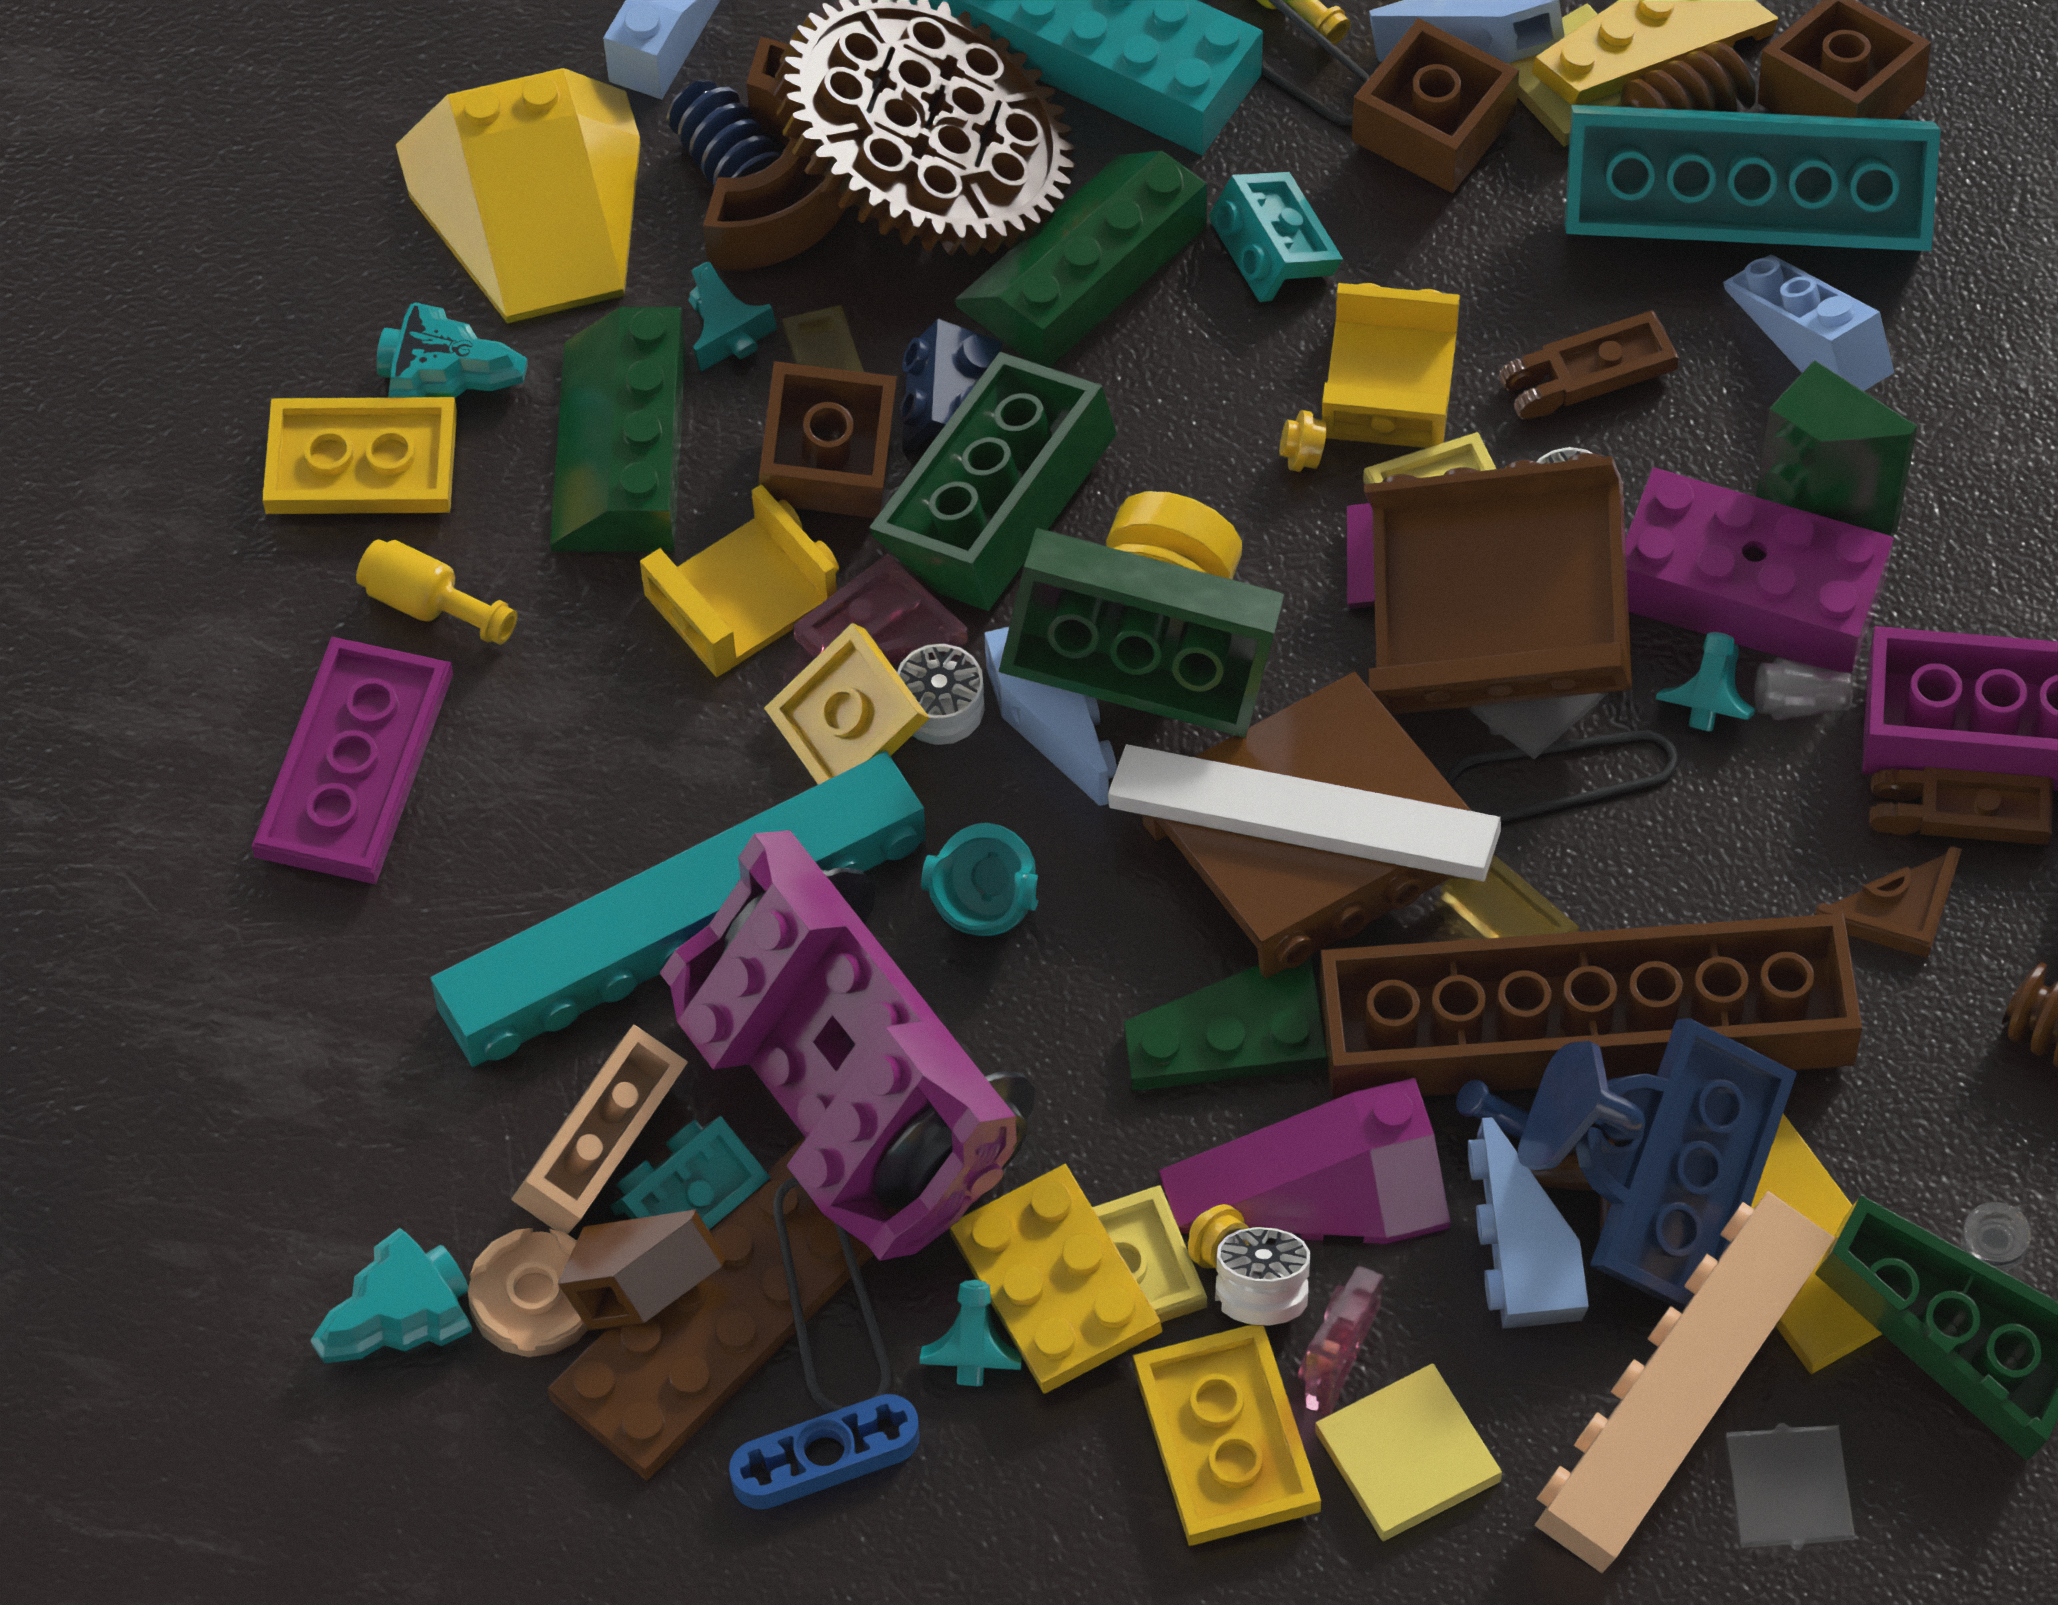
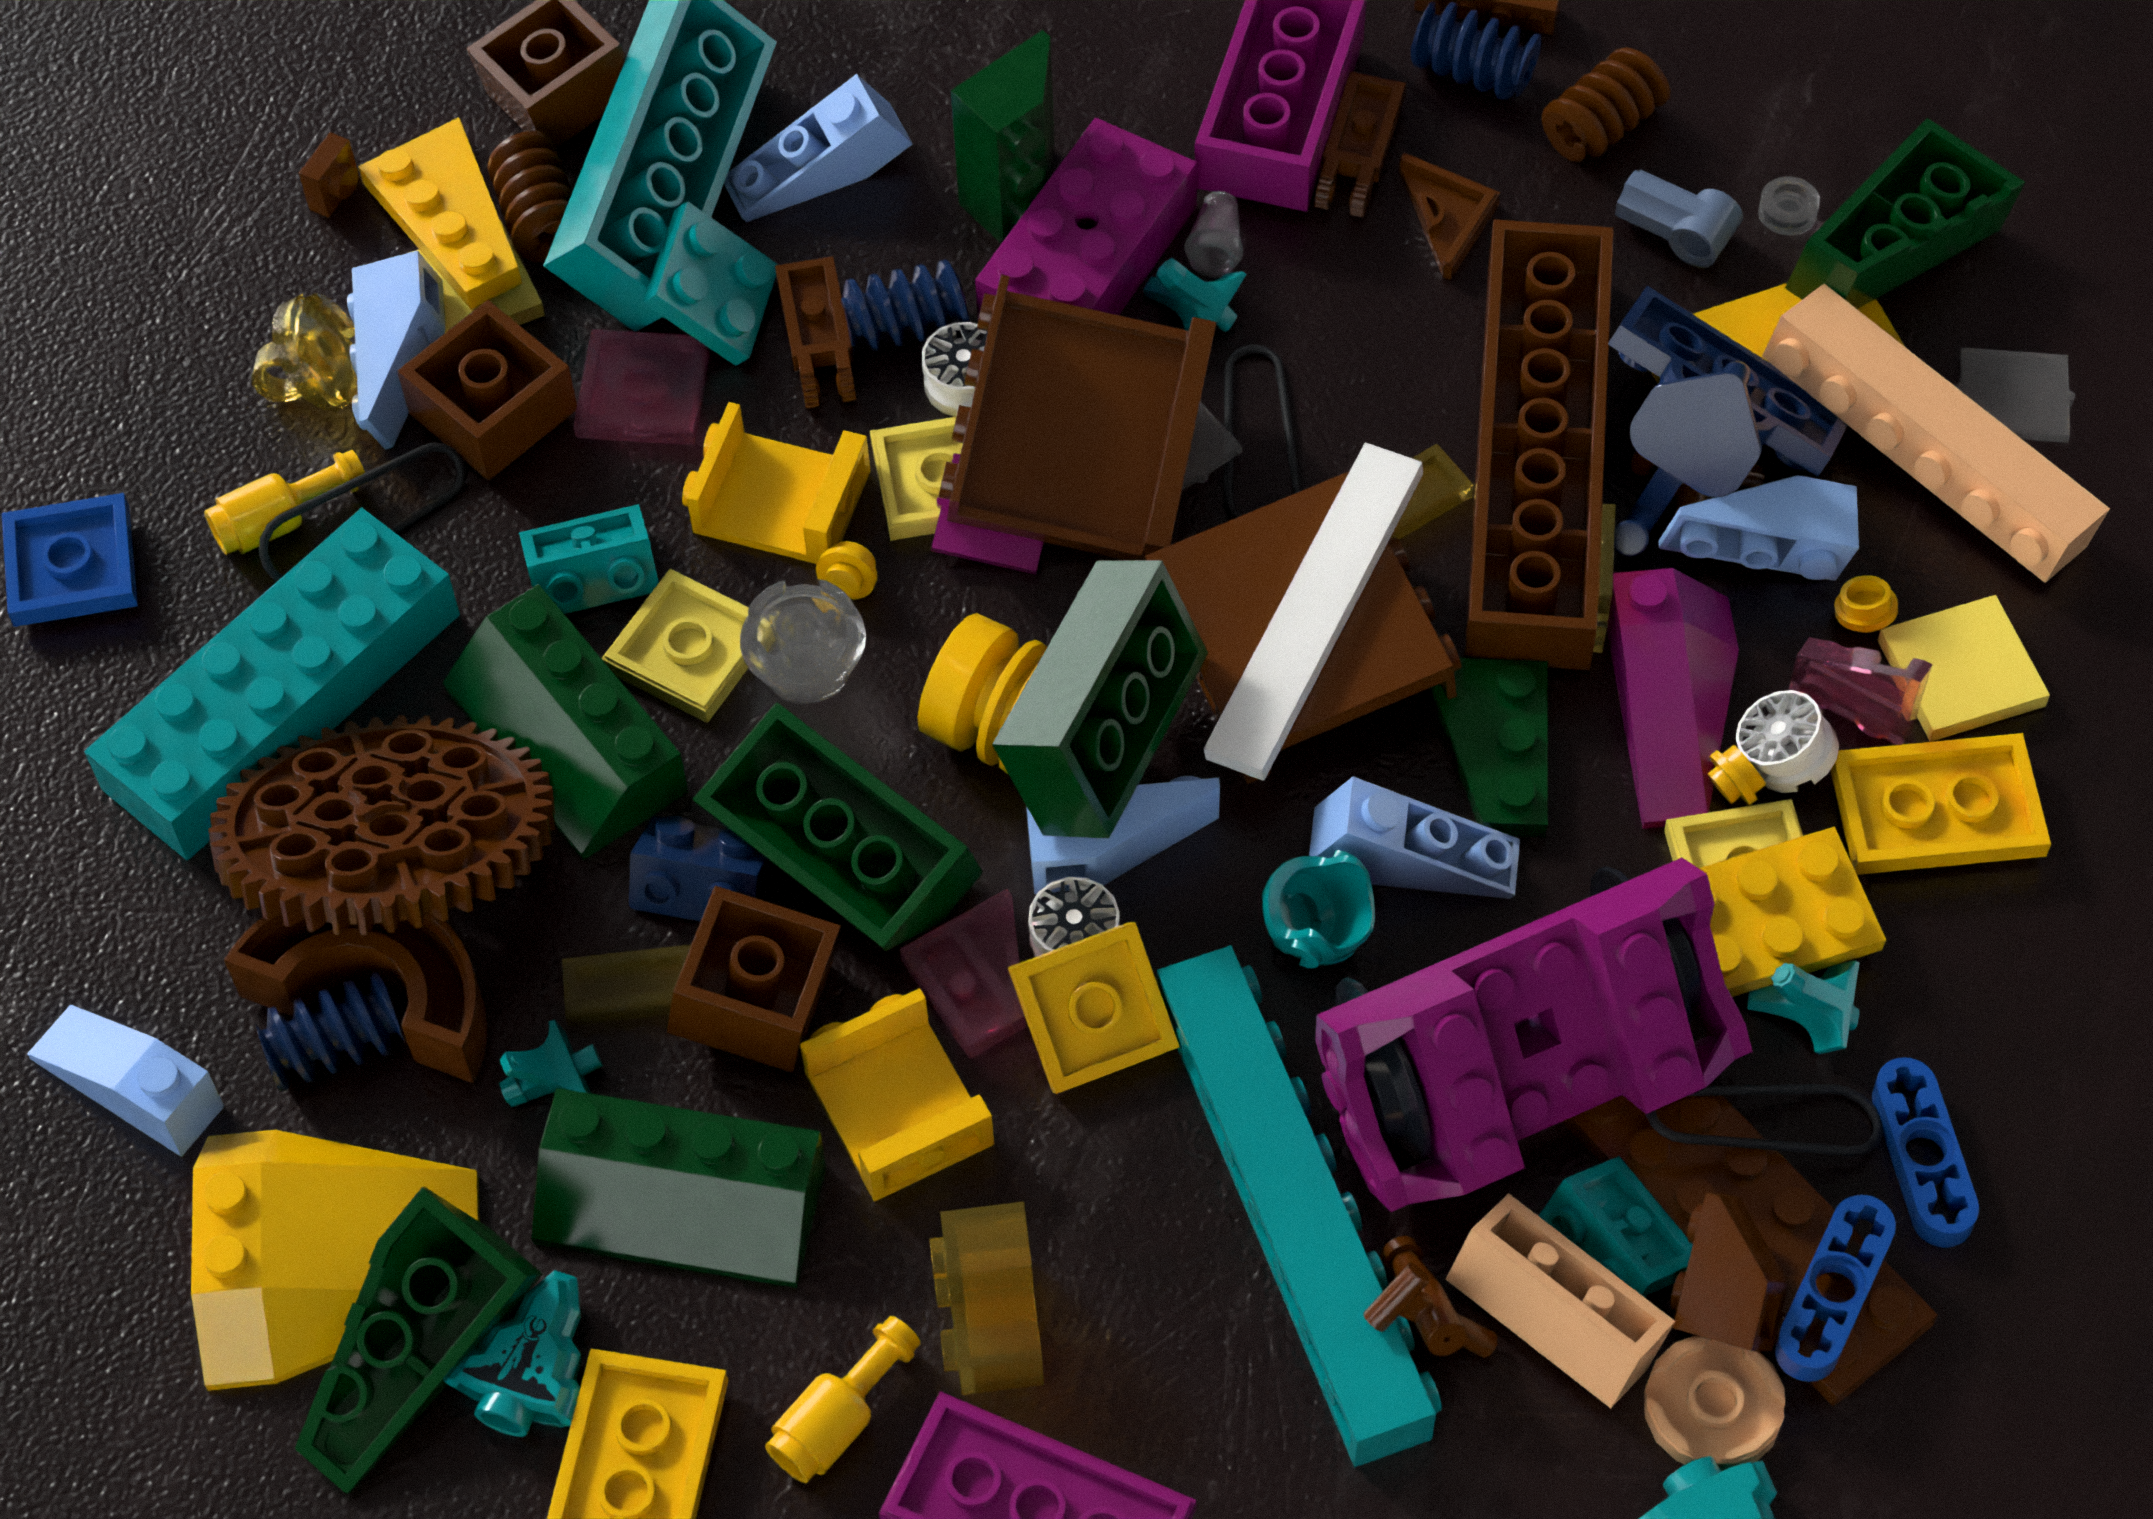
camera: 80 degrees left, 0 degrees up
(467, 264) = (423, 1308): none -> dark green wedge
(538, 686) = (988, 1282): none -> clear yellow brick
(577, 1024) = (1422, 1299): none -> reddish brown piece
(695, 1355) = (1831, 1258): none -> blue beam
(1083, 967) = (1414, 842): none -> light blue slope
(1197, 408) = (803, 640): none -> clear cone
(1200, 336) = (682, 646): none -> light yellow tile
(1437, 1073) = (1605, 573): none -> clear yellow piece
(1461, 1347) = (1866, 604): none -> yellow plate
(1493, 240) = (642, 387): none -> clear pink tile
(1606, 256) = (711, 283): none -> teal plate
(1625, 423) = (903, 304): none -> dark blue piece
(1936, 1131) = (1692, 223): none -> sand blue piece

